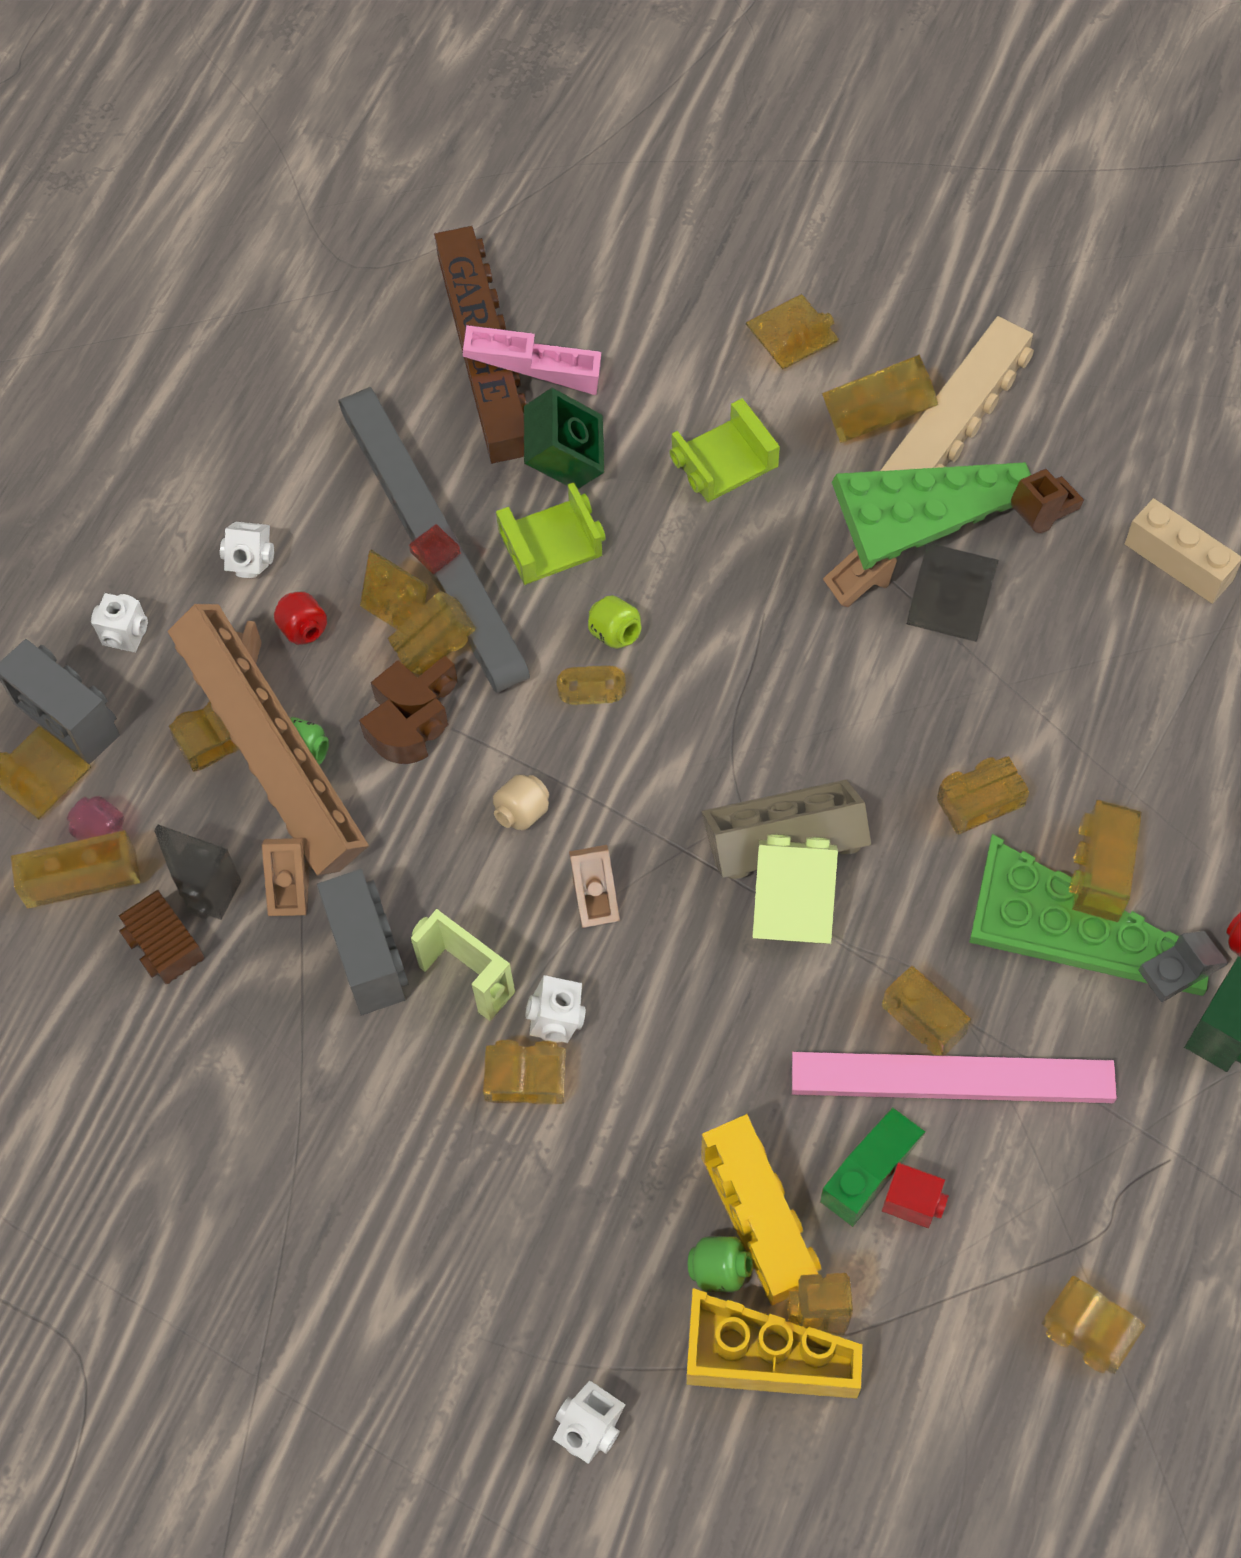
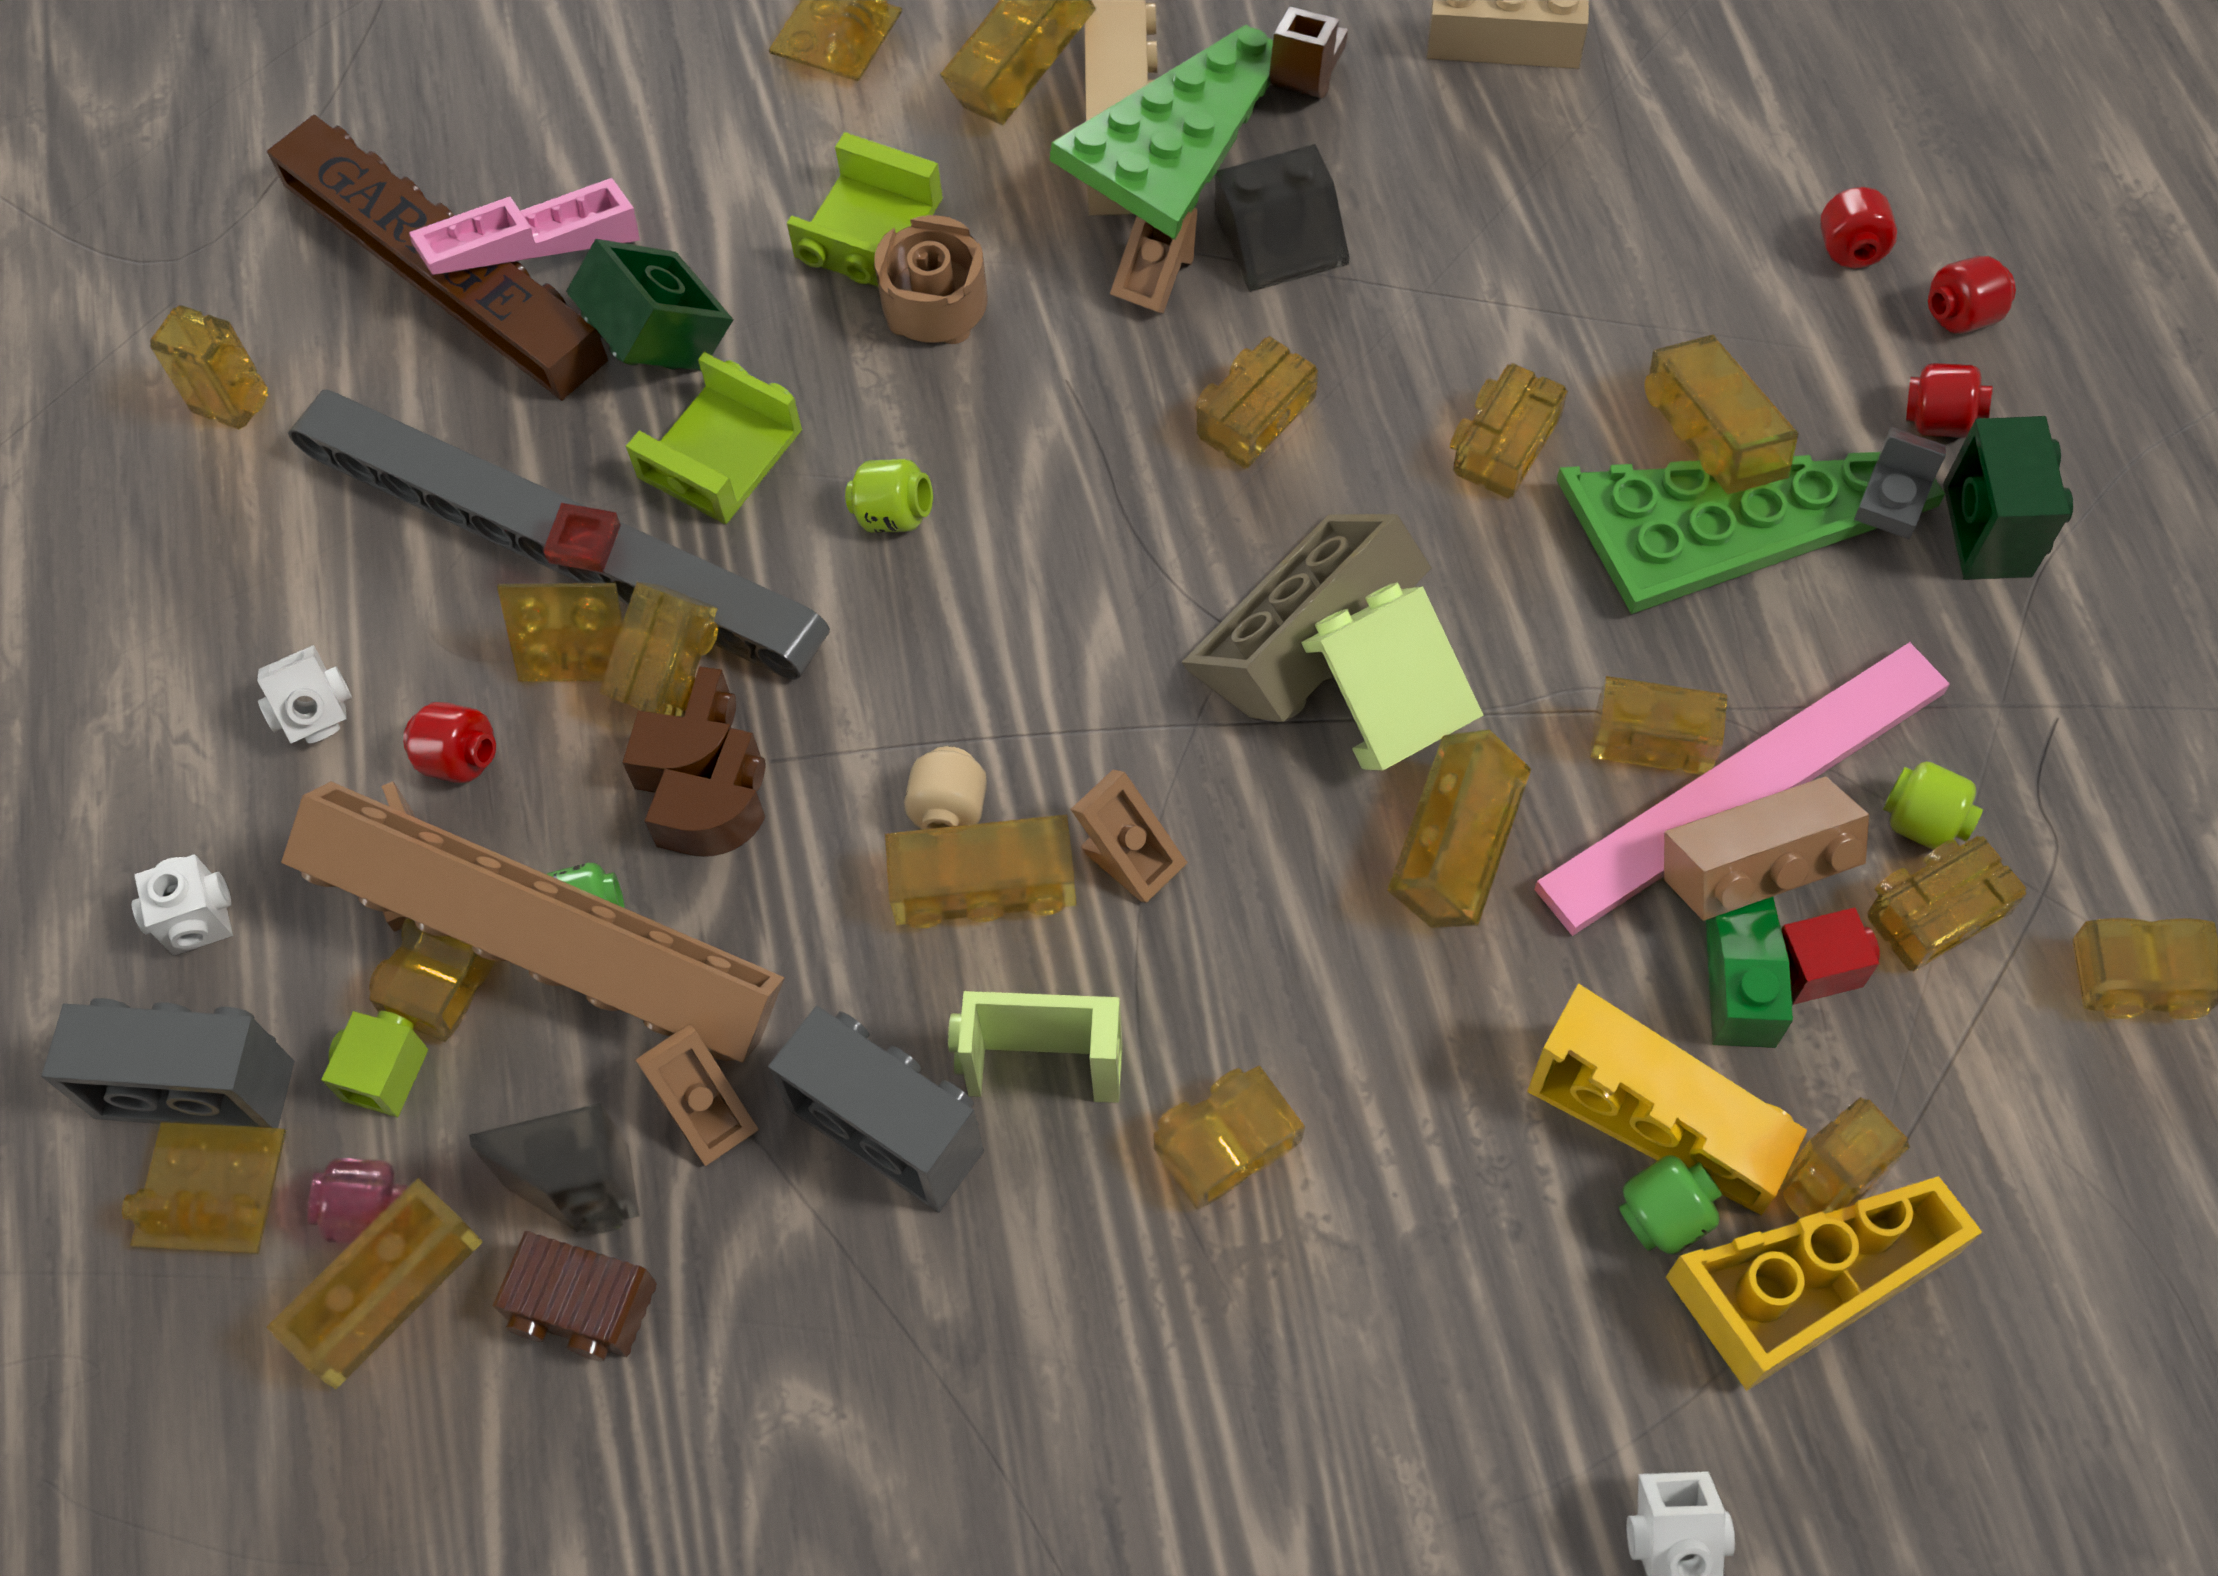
camera: 35 degrees left, 0 degrees up
(152, 760) = (375, 1062): none -> lime brick
(322, 341) = (209, 367): none -> clear yellow brick
(508, 855) = (980, 871): none -> clear yellow brick
(555, 1009) = (1205, 1025): white brick -> none
(591, 685) = (915, 591): clear yellow beam -> none
(727, 512) = (931, 280): none -> medium nougat brick
(769, 996) = (1460, 829): none -> clear yellow brick
(853, 690) = (1255, 401): none -> clear yellow brick
(926, 1116) = (1765, 847): none -> medium nougat brick
(1006, 1212) = (1945, 901): none -> clear yellow brick
(1043, 1157) = (1932, 805): none -> lime head

